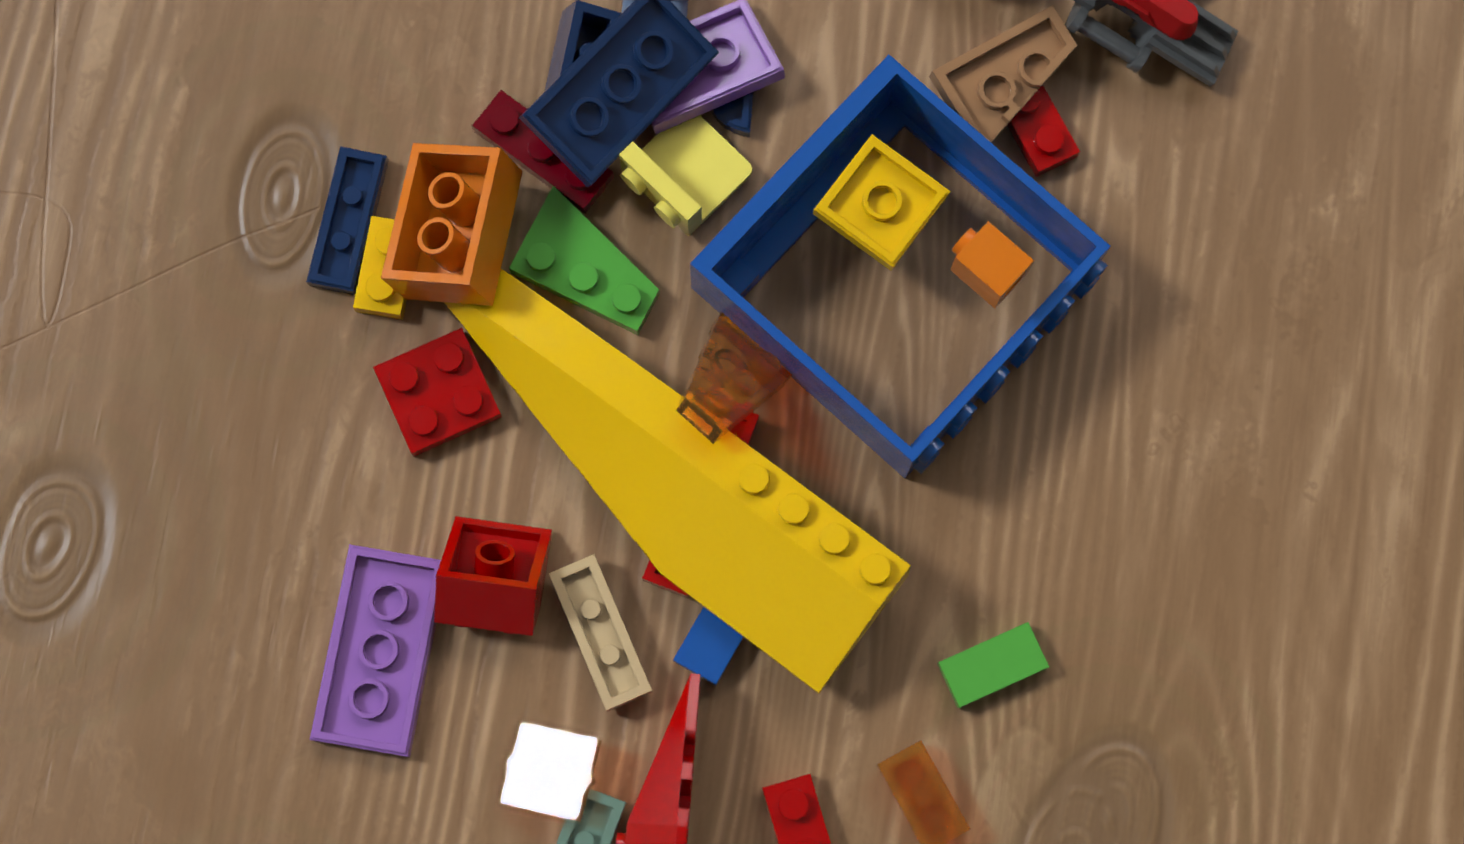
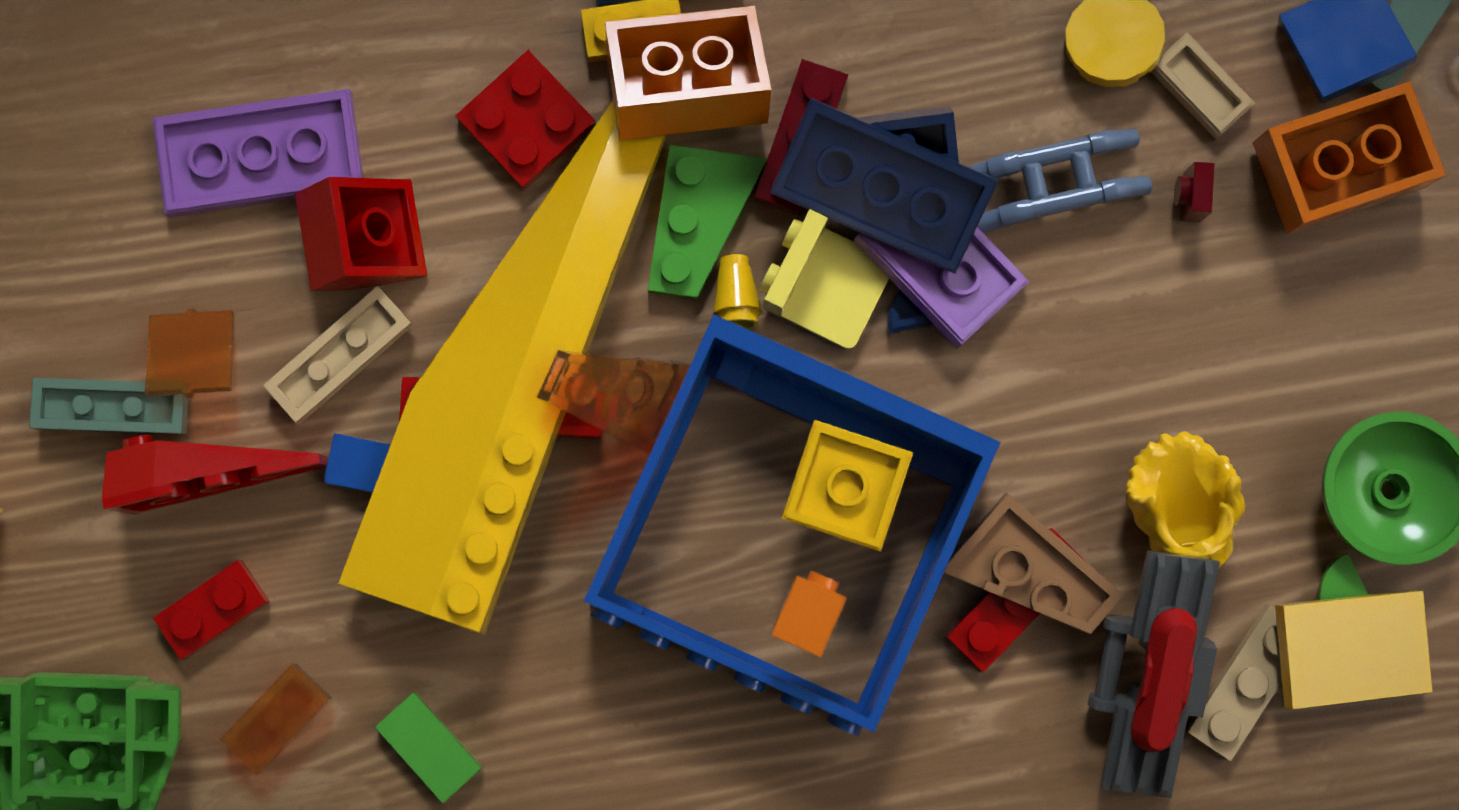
camera: 70 degrees right, 5 degrees up
(666, 252) = (736, 292): none -> yellow cone

